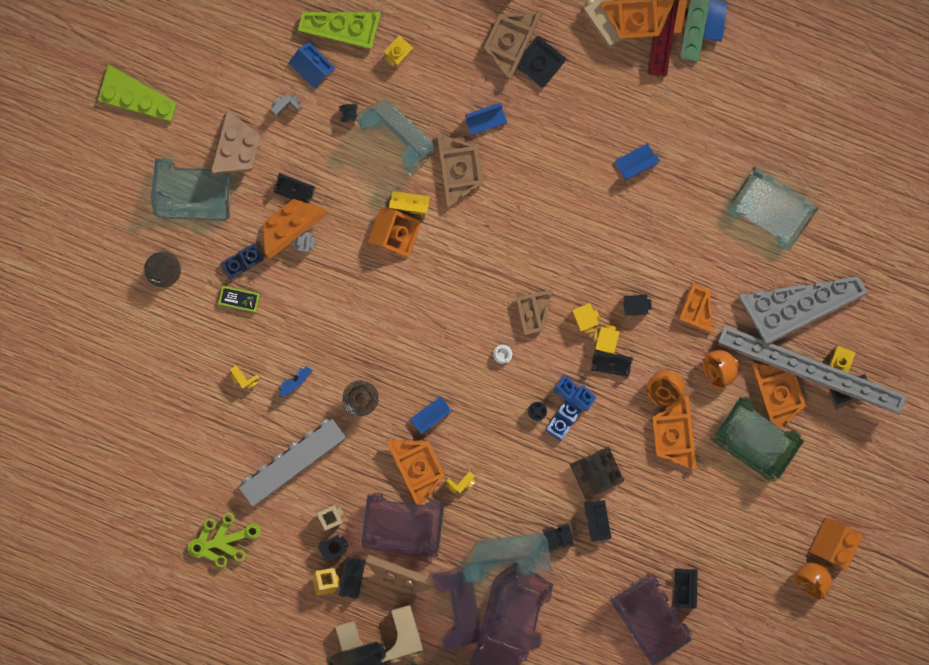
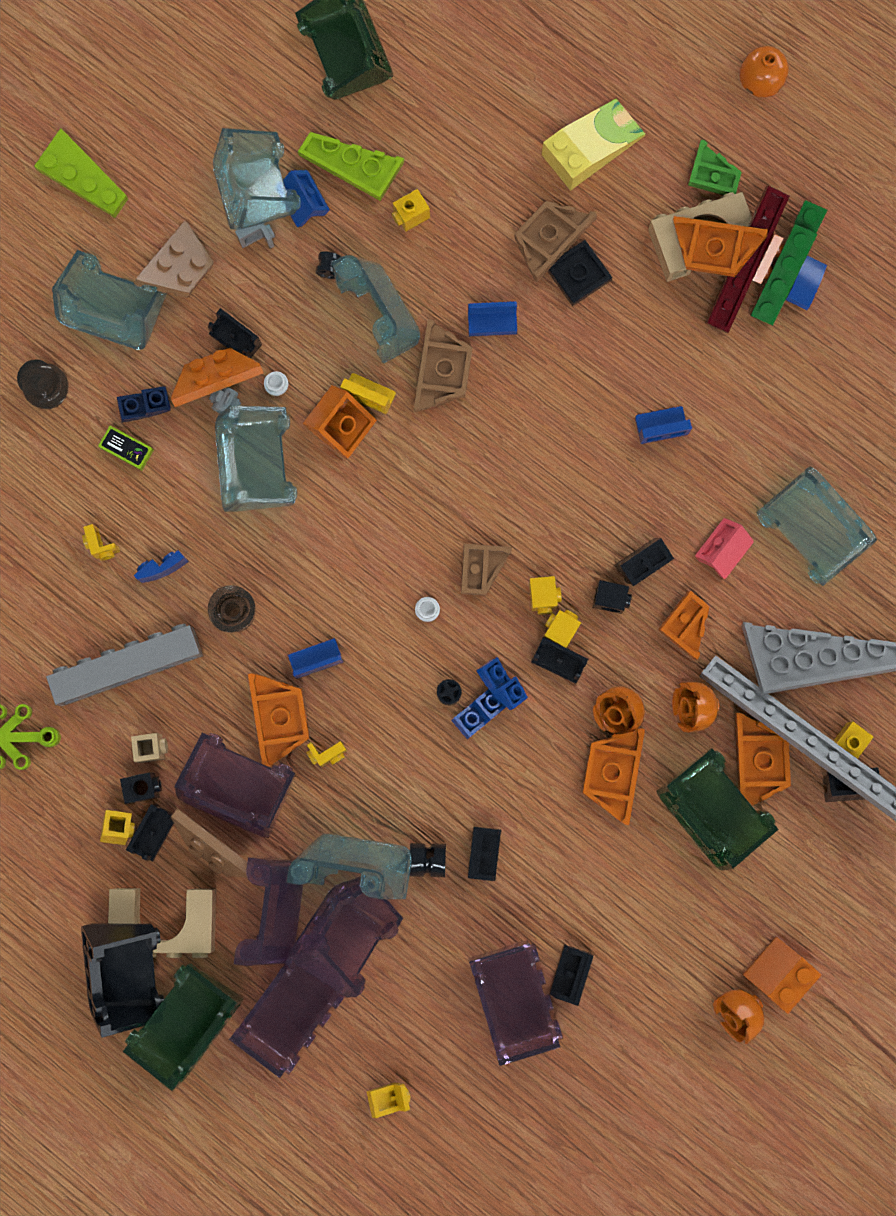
camera: 20 degrees right, 5 degrees down
(270, 65) = (251, 178): none -> clear light blue windscreen
(337, 216) = (276, 383): none -> white plate
(338, 280) = (252, 458): none -> clear light blue windscreen
(597, 472) = (501, 792): clear smoke slope -> none
(652, 271) = (644, 561): none -> black hinge
(709, 242) = (725, 547): none -> coral panel

